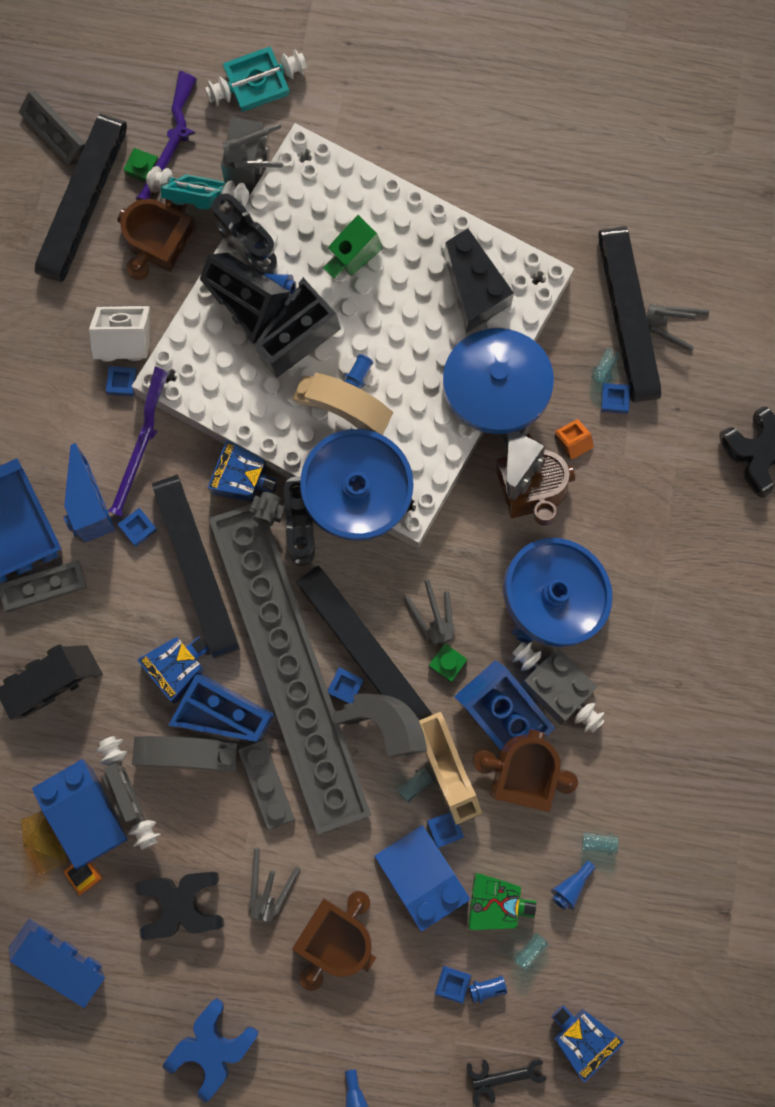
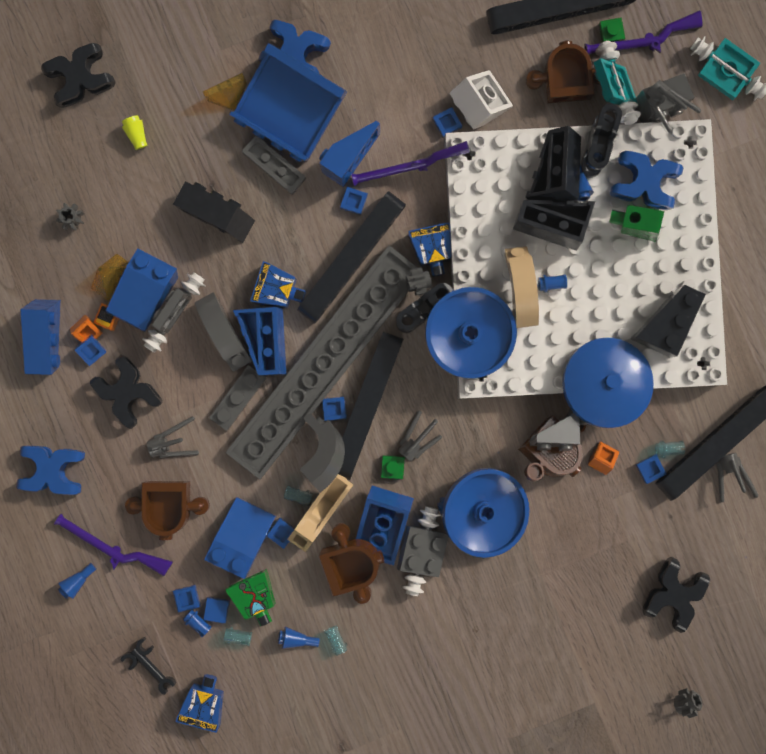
camera: 65 degrees right, 10 degrees up
(82, 910) = (84, 328): none -> orange slope
(107, 917) = (90, 350): none -> blue tile
(314, 217) = (646, 180): none -> blue piece
(391, 995) = (157, 564): none -> dark purple piece
(486, 957) = (216, 610): none -> blue tile

